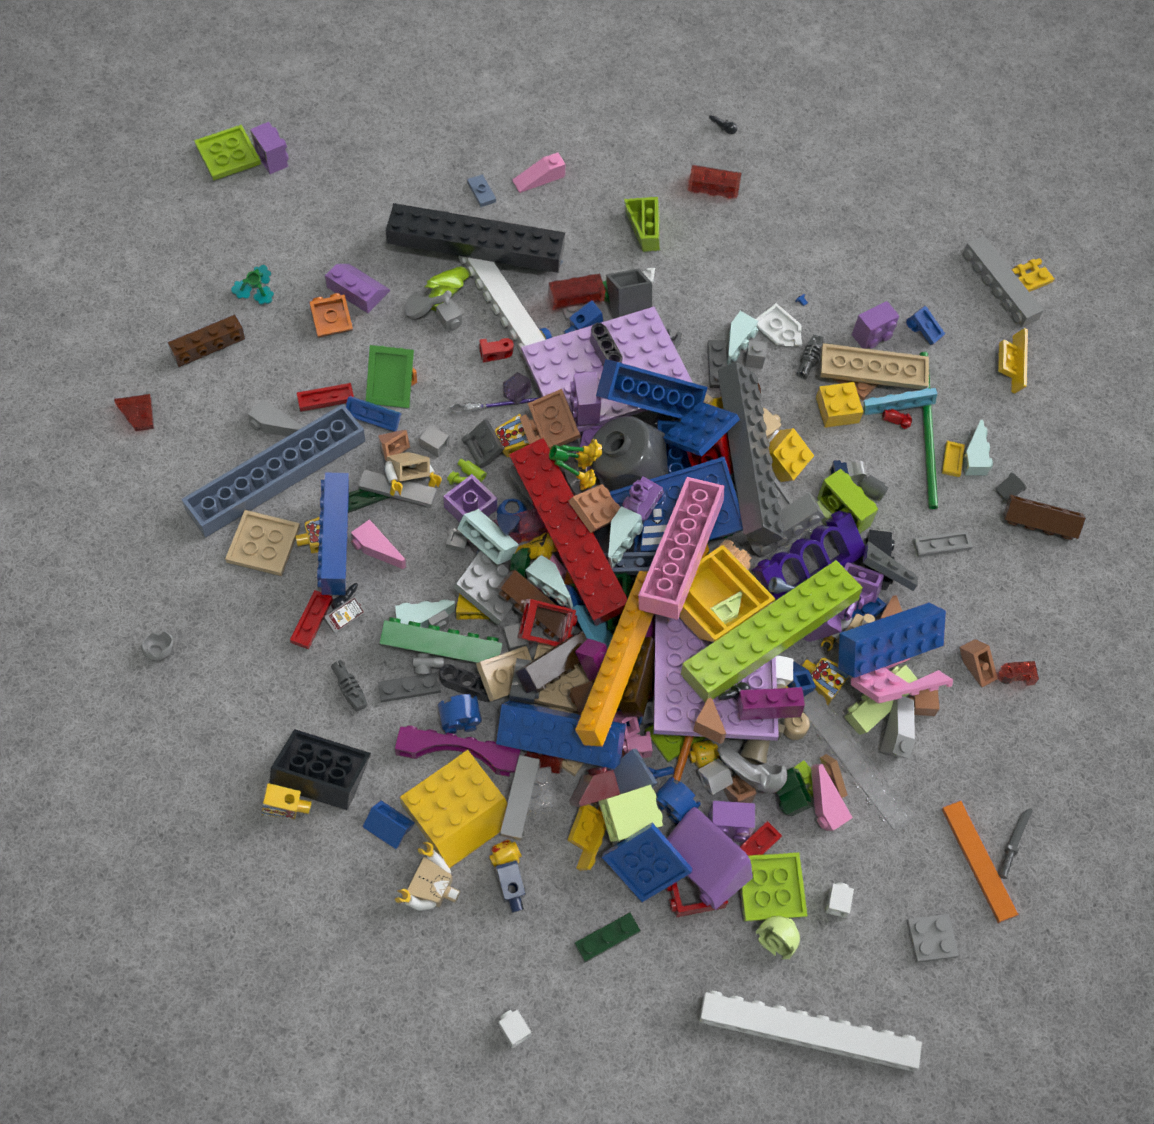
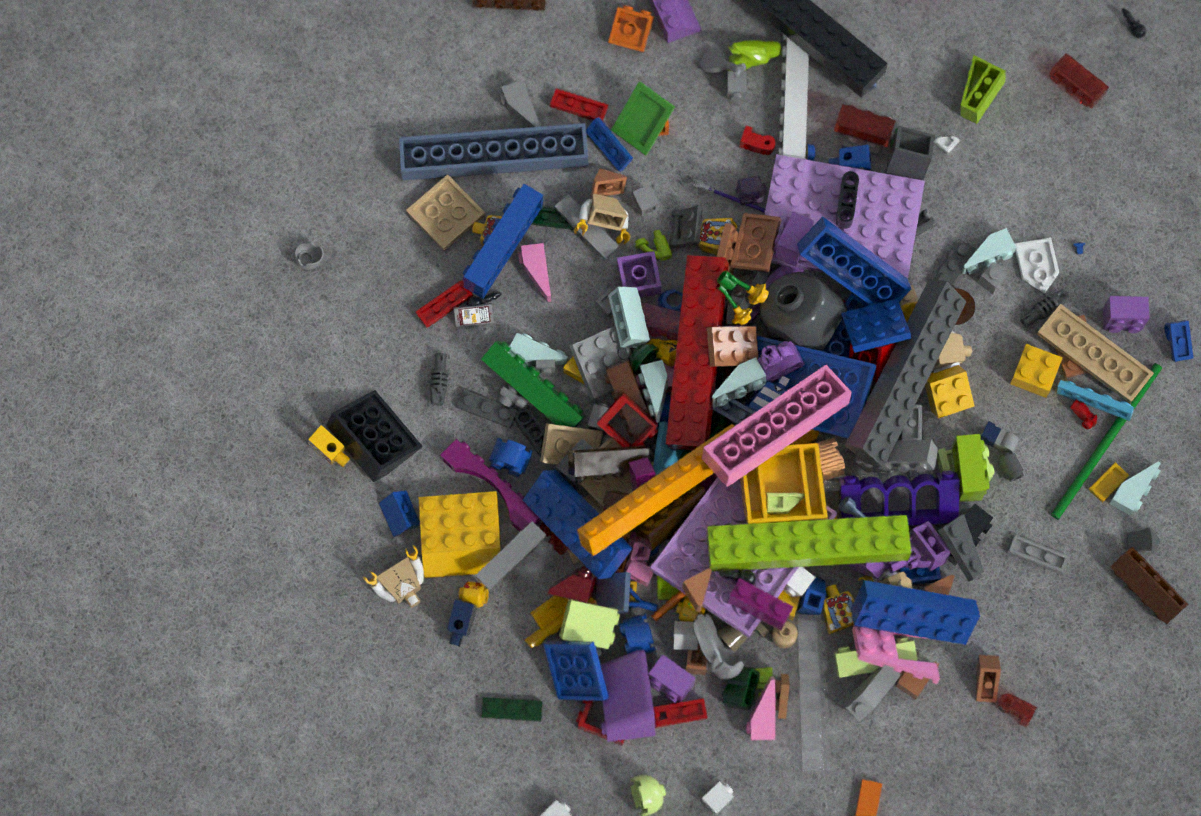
camera: 40 degrees right, 10 degrees up
(137, 411) = (413, 32): clear red wing -> none
(508, 523) = (652, 316): dark blue tile -> none
(514, 1028) = (393, 732): white brick -> none
(775, 888) = (670, 754): lime plate -> none

